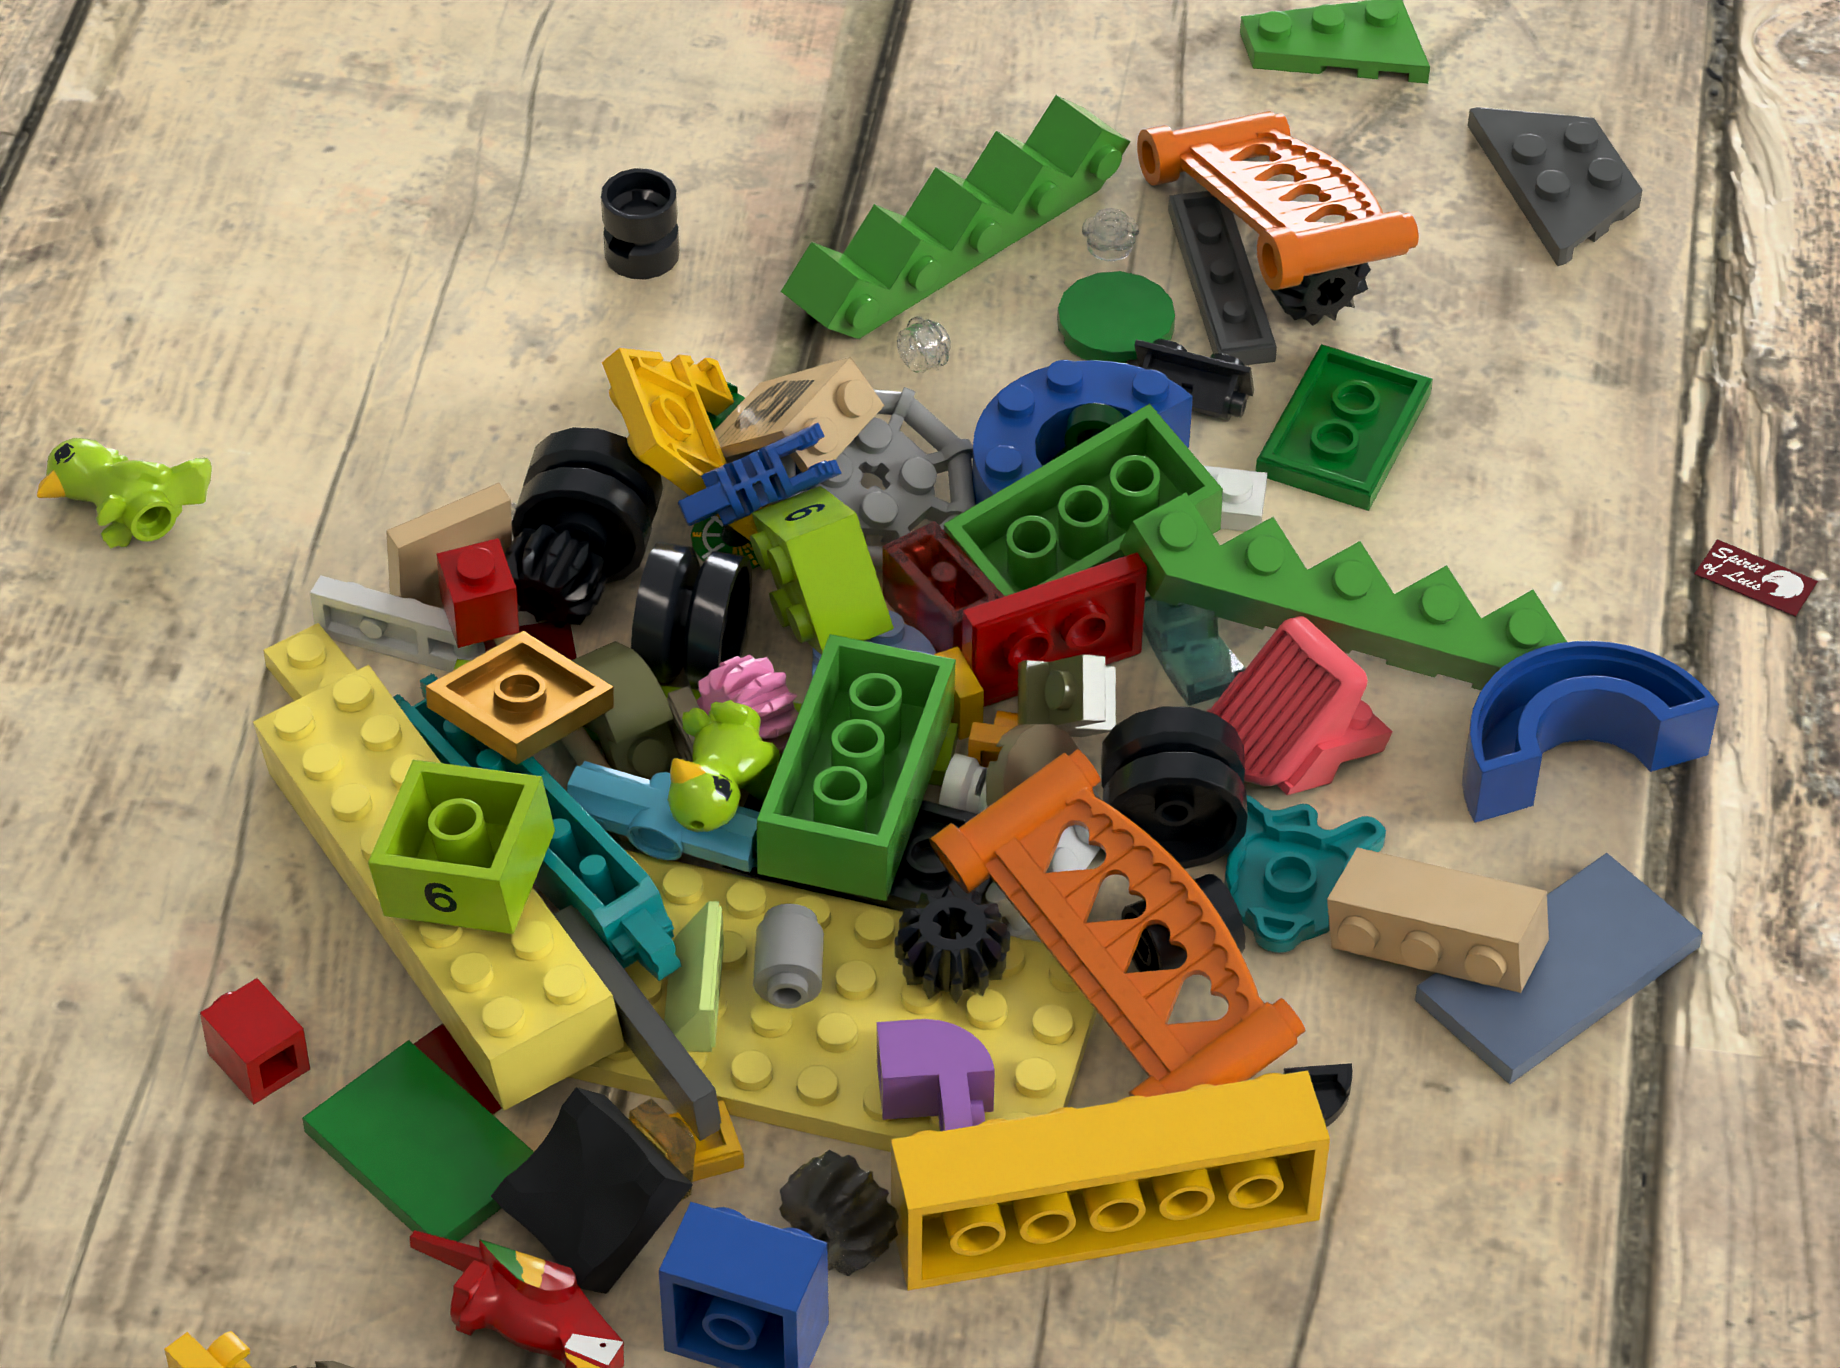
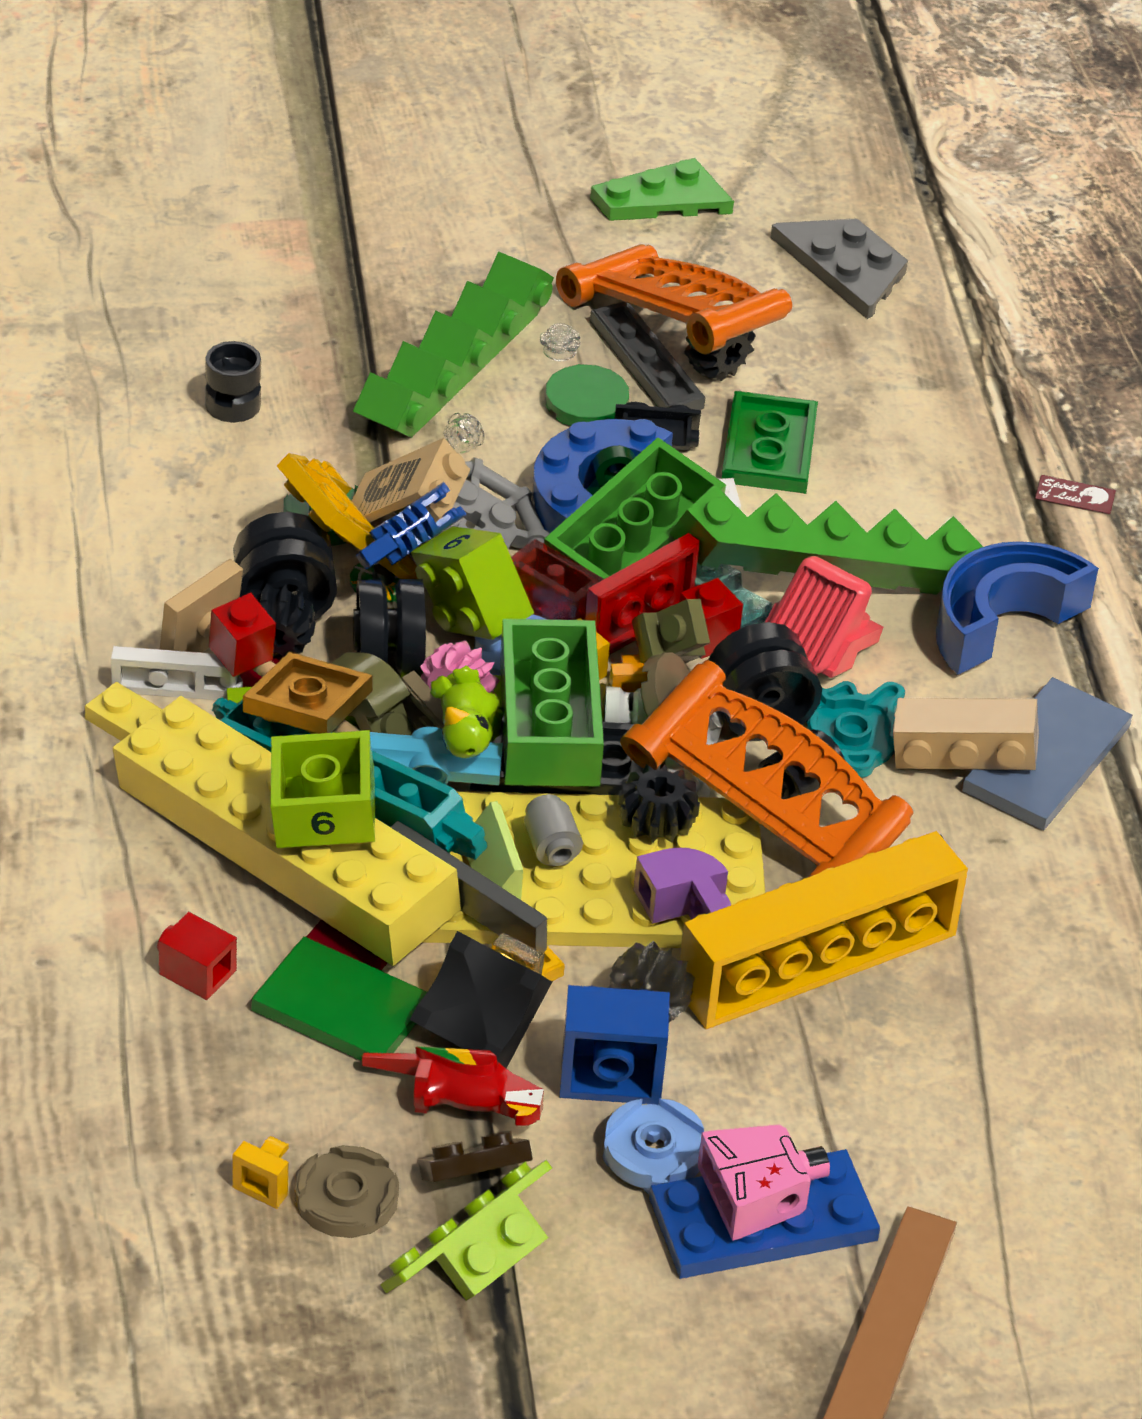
camera: 20 degrees left, 5 degrees down
(1148, 669) = (720, 609): none -> red brick

